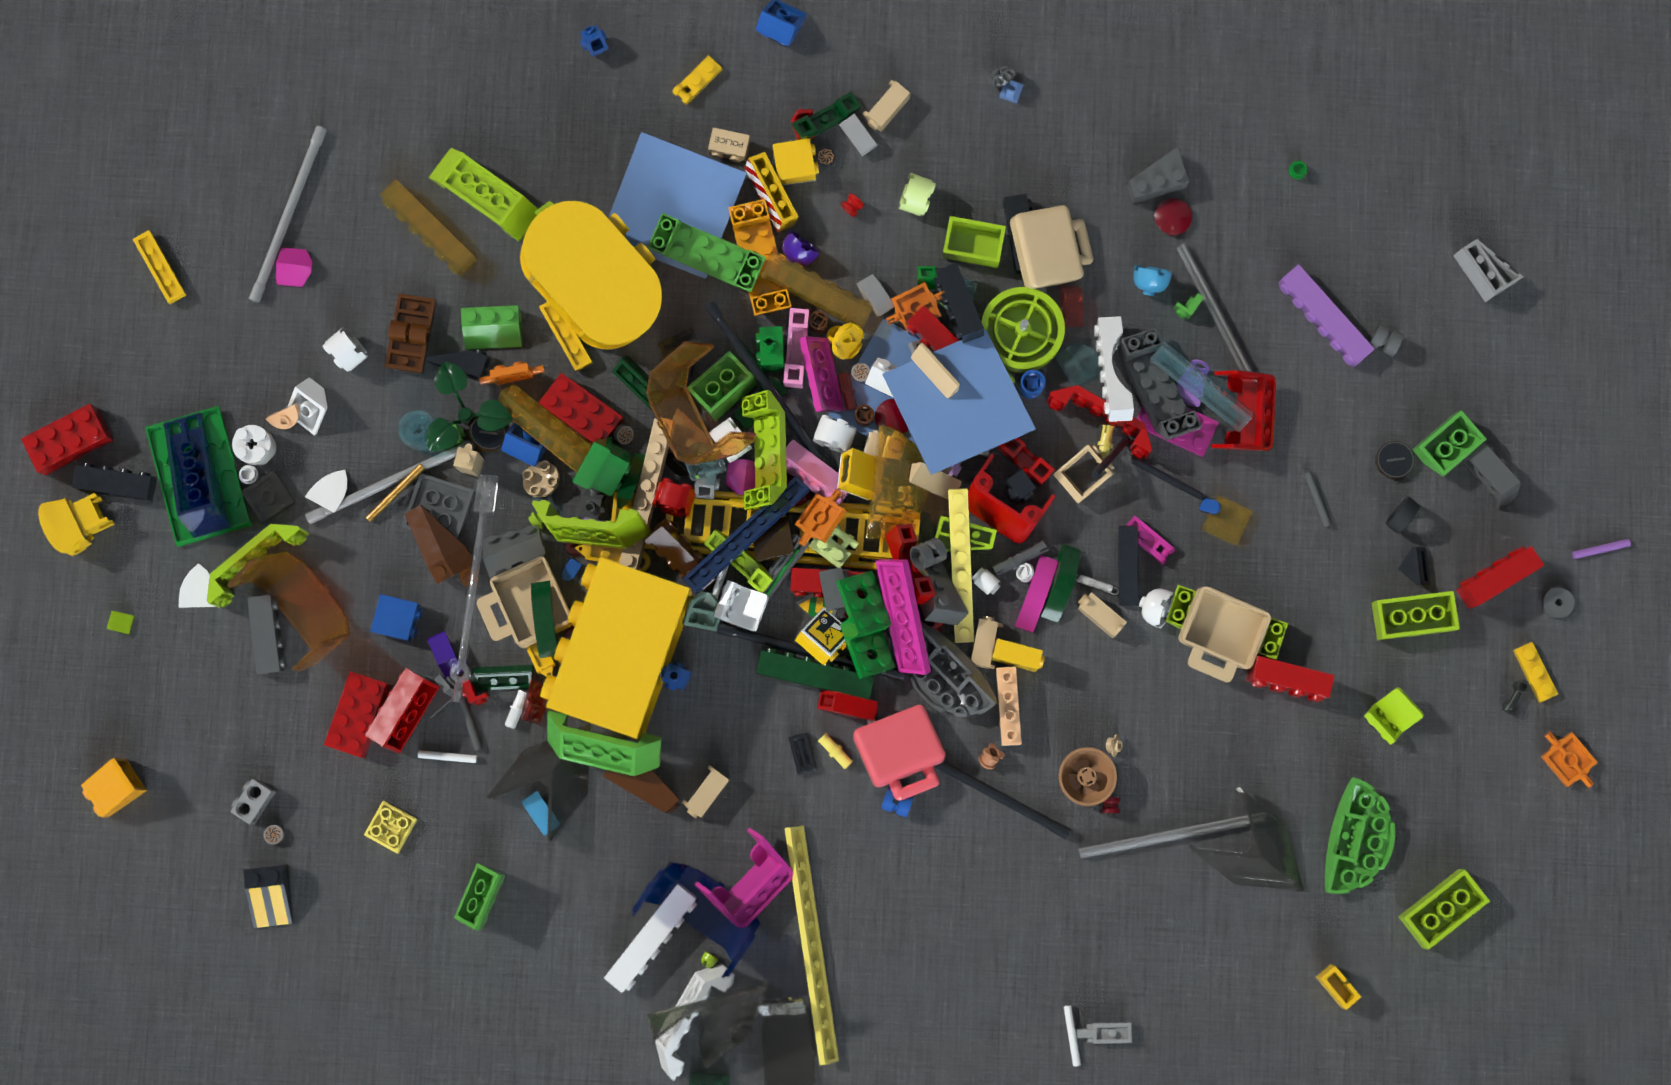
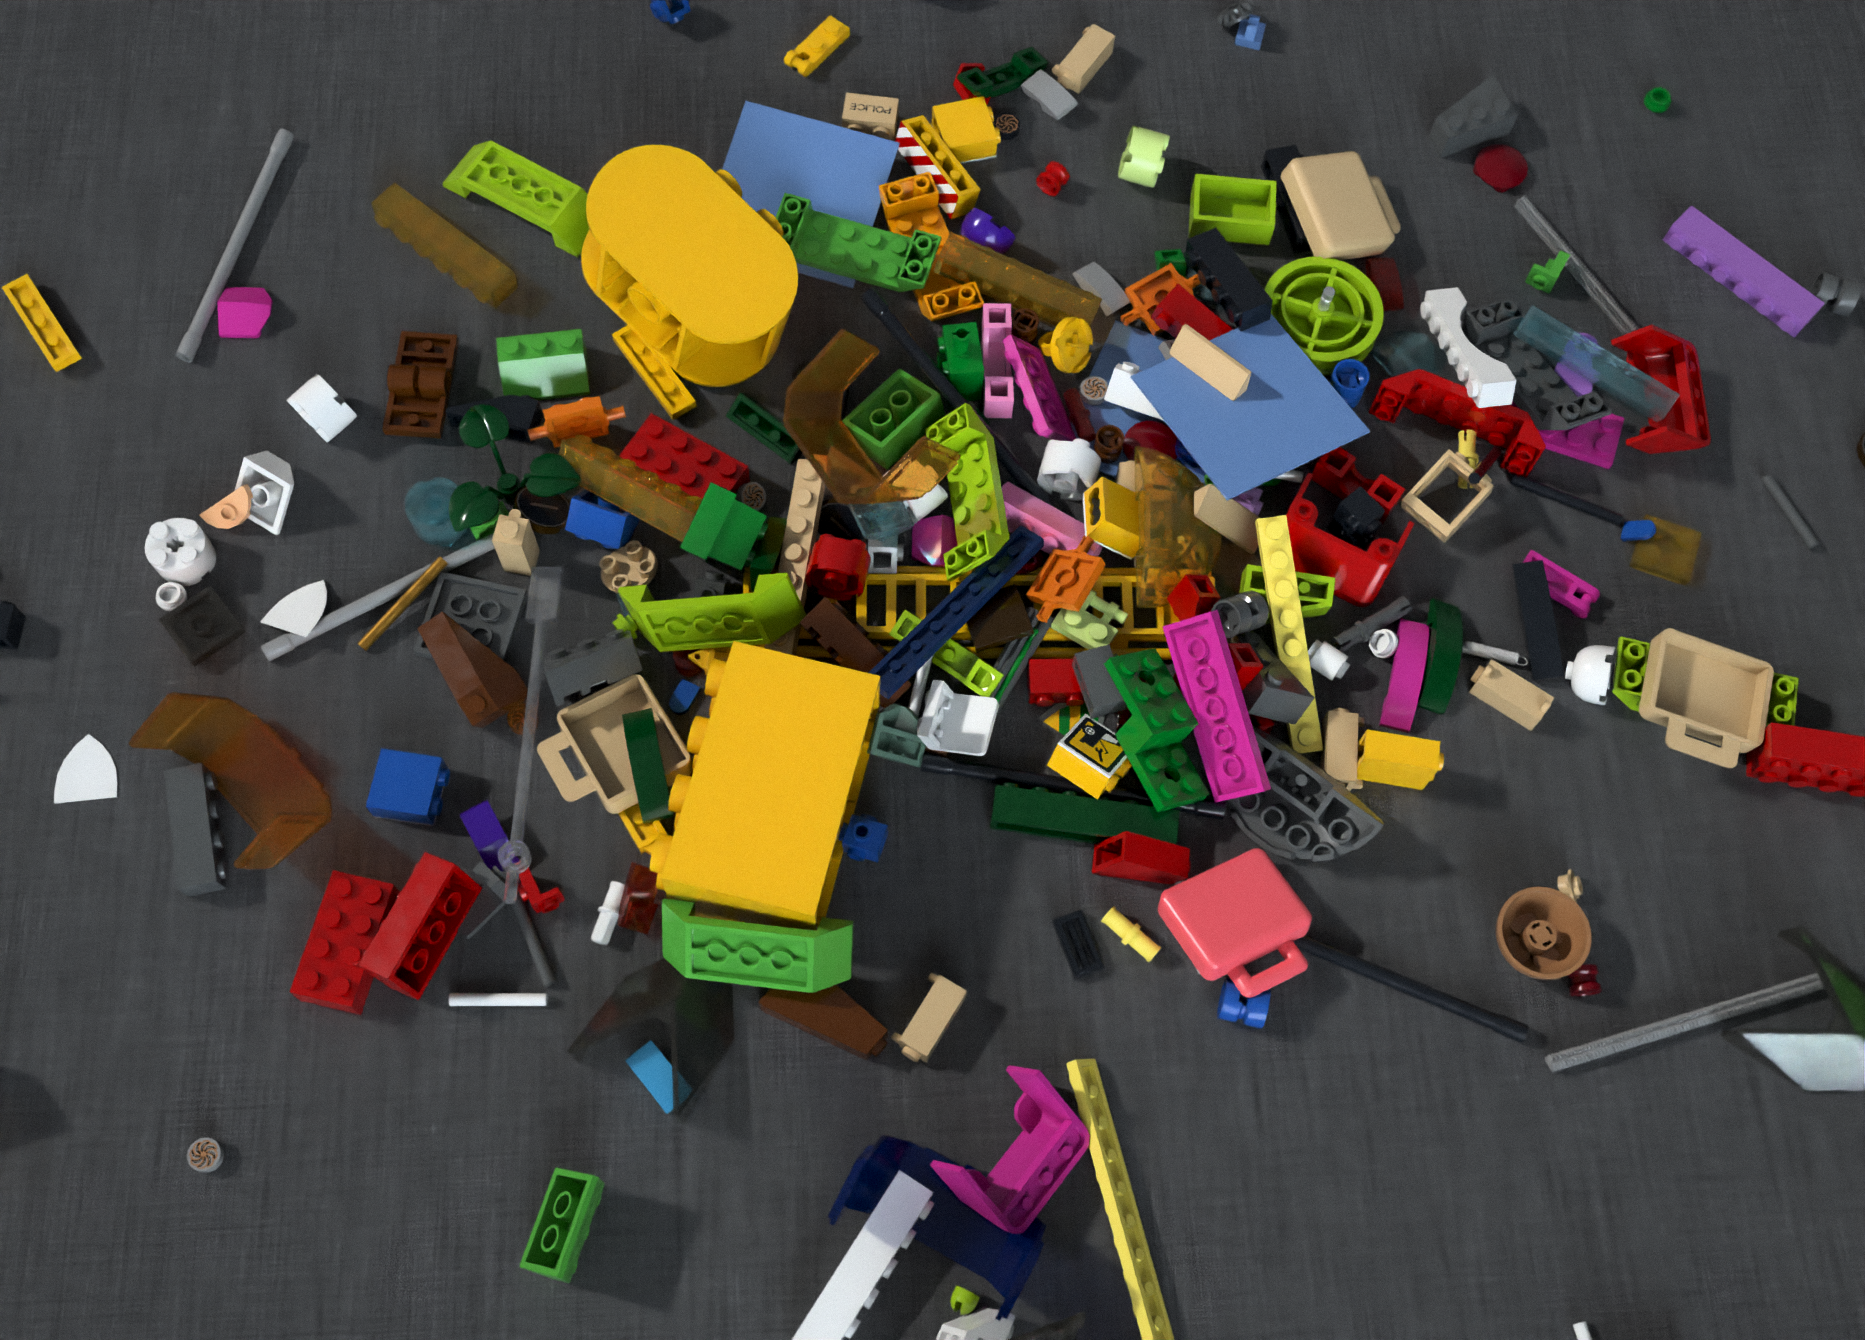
camera: 10 degrees left, 15 degrees down
(198, 476) = (91, 606): piece -> none
(218, 592) = (202, 676): lime slope -> none
(257, 805) = (176, 1105): light grey brick -> none
(268, 895) = (194, 1260): black slope -> none
(390, 827) = (405, 1124): light yellow tile -> none
(503, 677) = (584, 867): dark green slope -> none
(990, 756) = (1380, 921): nougat brick -> none
(1008, 706) = (1395, 842): light nougat piece -> none
(1151, 279) = (1489, 238): dark azure cylinder -> none

